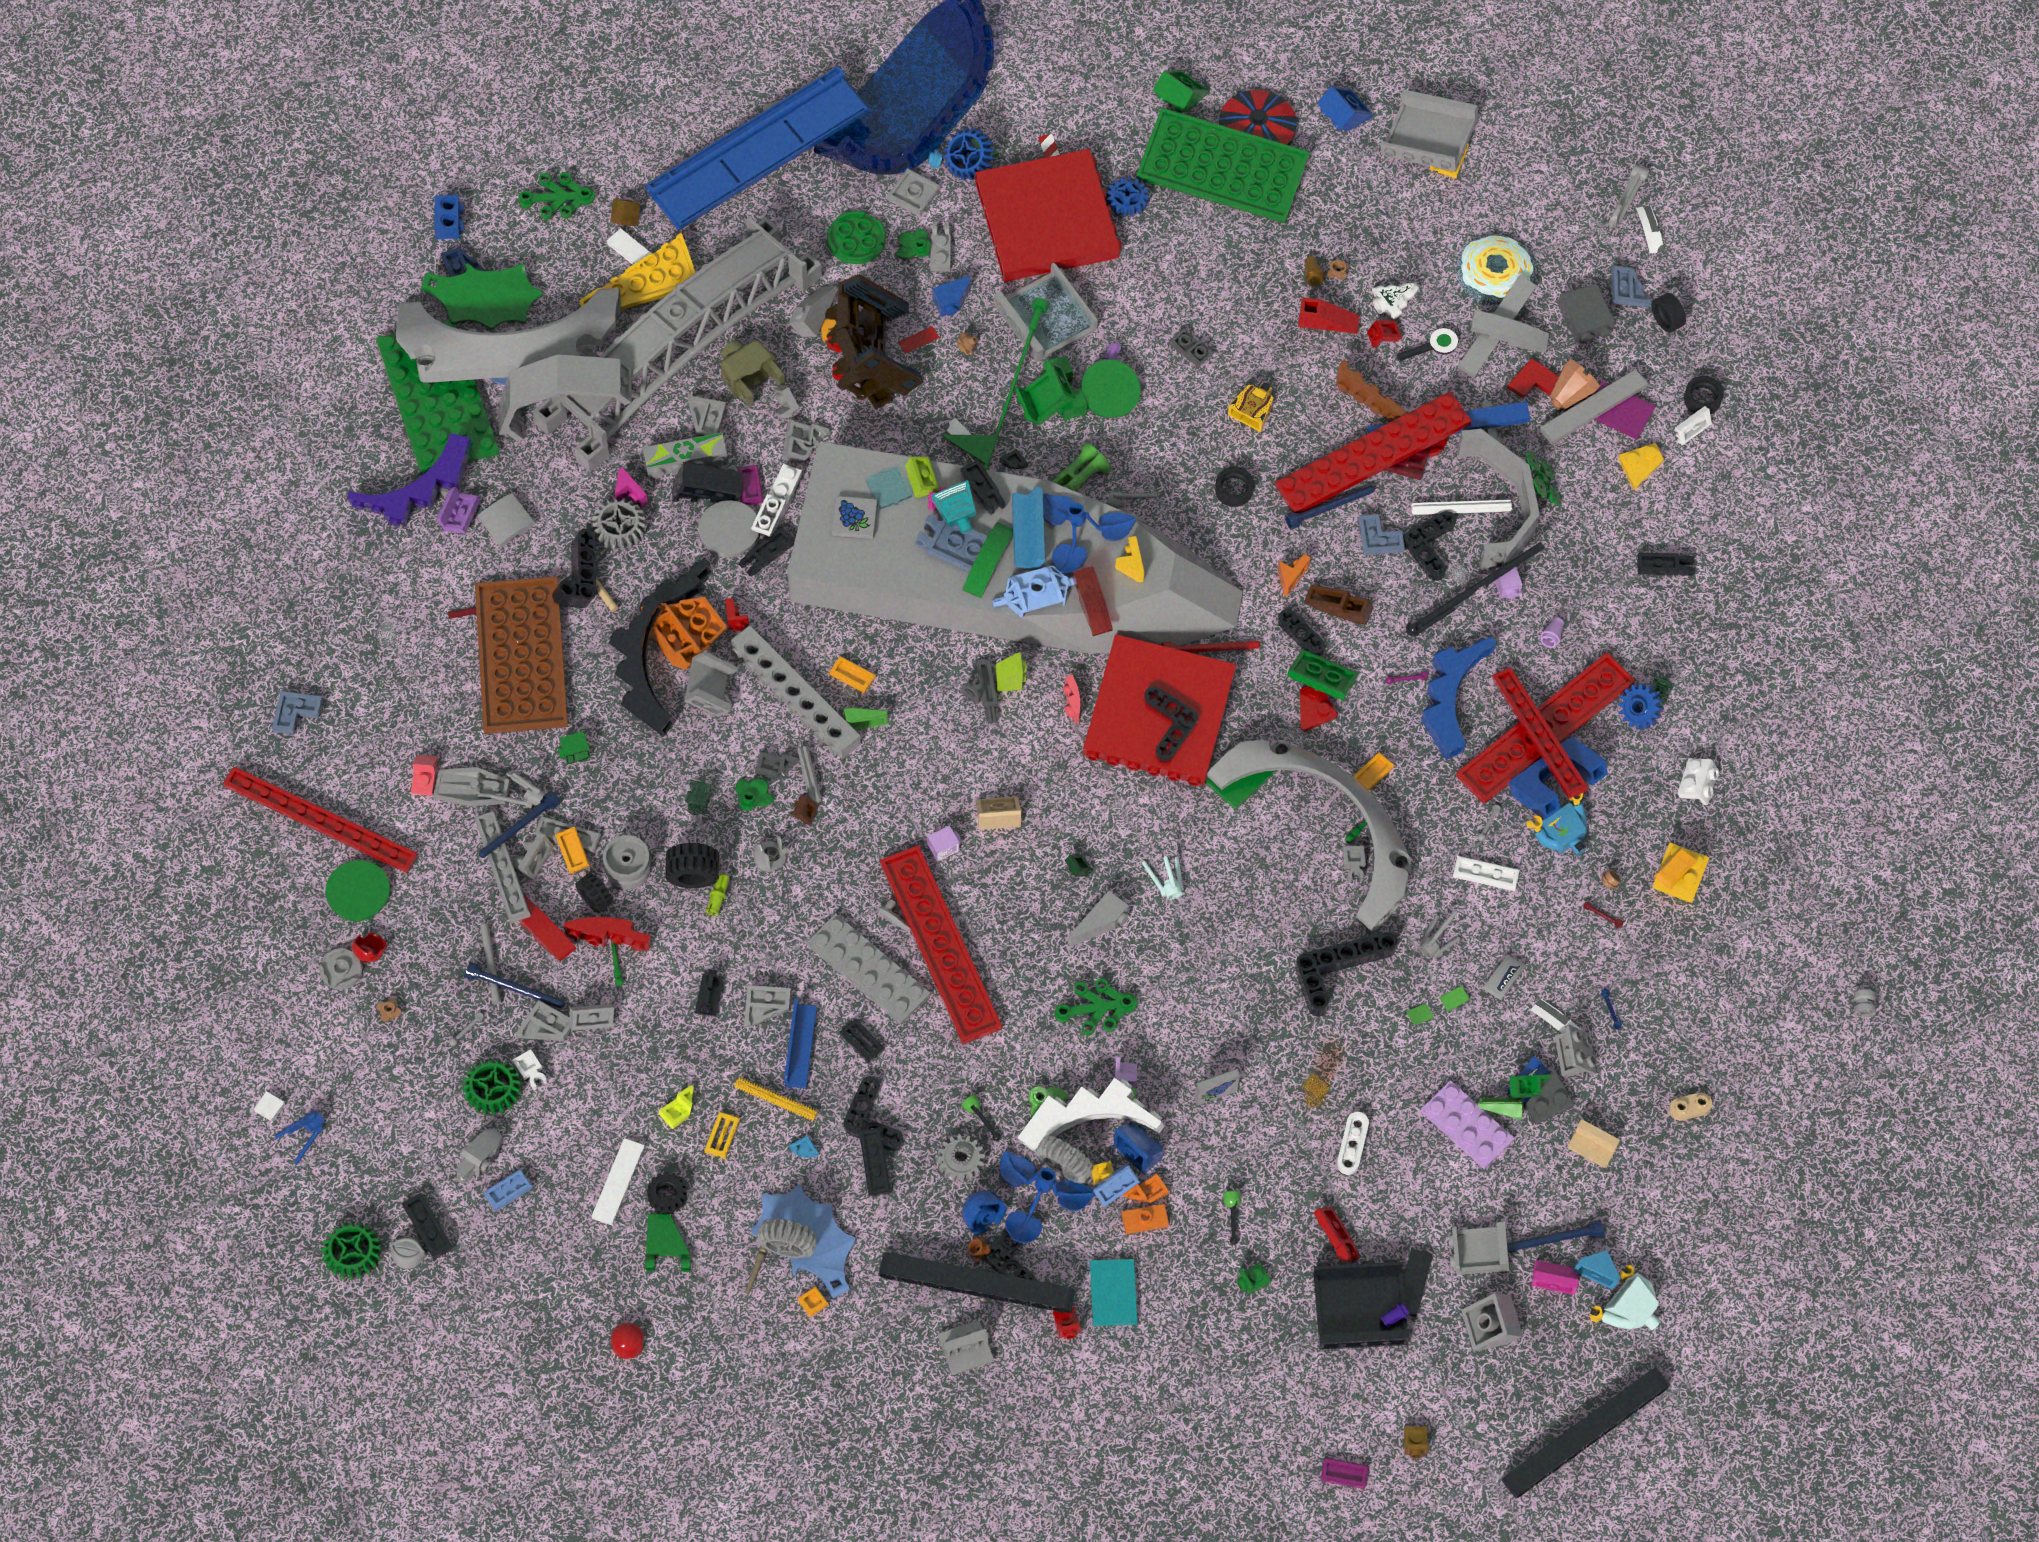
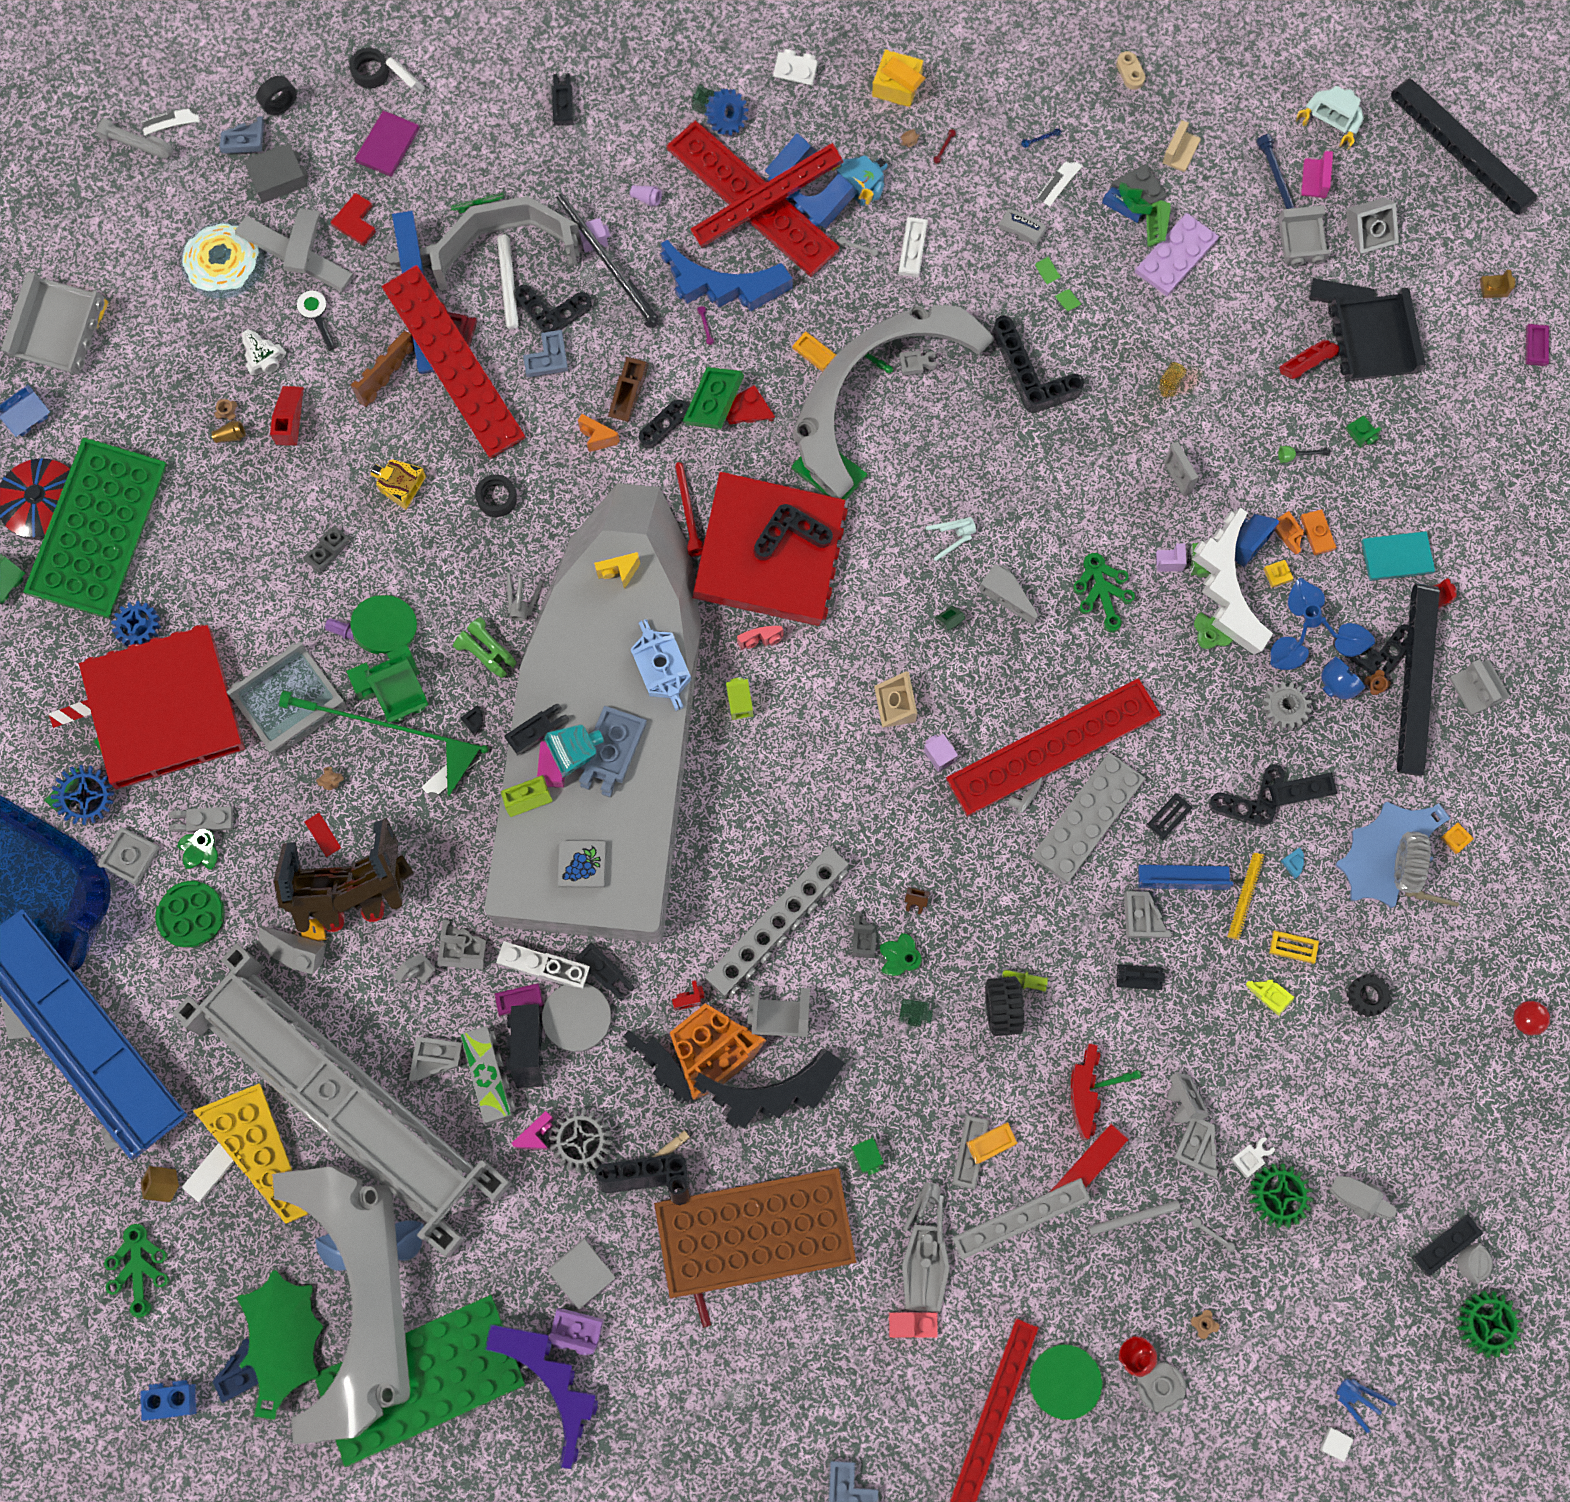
camera: 90 degrees left, 10 degrees up
(475, 972) = (1152, 1230): dark blue piece -> none
(507, 1190) = (1392, 1163): medium blue plate -> none
(537, 853) = (1012, 1188): light grey tile -> none
(549, 801) = (935, 1176): dark blue piece -> none
(561, 376) = (429, 1217): light grey panel -> none
(594, 892) = (1044, 1111): black tyre -> none
(618, 1181) = (1362, 1048): white tile -> none
(626, 862) = (1010, 1068): light grey wheel -> none
(664, 1240) = (1419, 993): green flag -> none
(747, 367) = (371, 1015): olive piece -> none
(762, 859) = (974, 941): light grey piece -> none
(809, 774) = (872, 899): light grey axle -> none
(852, 674) = (747, 866): light orange tile -> none
(865, 718) = (803, 854): bright green slope -> none
(888, 488) = (541, 831): clear light blue piece -> none
(934, 159) = (85, 834): dark azure plate -> none
(951, 295) = (270, 801): blue slope -> none
(972, 1105) = (1225, 701): hinge -> none
(984, 691) = (757, 727): dark grey piece -> none
(987, 559) = (626, 715): green slope -> none
(1028, 529) = (587, 676): dark azure panel -> none
(1059, 508) = (574, 591): blue plant -> none
(1064, 1159) = (1281, 603): light grey gear -> none
(1092, 601) = (671, 605): clear red slope -> none
(1115, 1185) = (1293, 557): medium blue plate -> none
(1295, 519) = (532, 435): dark blue piece -> none
(1355, 1135) = (1222, 349): white plate -> none
(1383, 331) = (304, 361): red bracket -> none
(1395, 1314) = (1384, 303): dark purple pin -> none
(1430, 945) = (998, 290): light grey plant -> none
(1572, 386) = (365, 180): nougat cone -> none
(1575, 1052) = (1094, 164): light grey bracket -> none
(1593, 407) = (388, 163): light grey tile -> none
(1598, 1268) = (1303, 138): dark azure slope -> none
(1640, 463) = (449, 123): yellow wing -> none

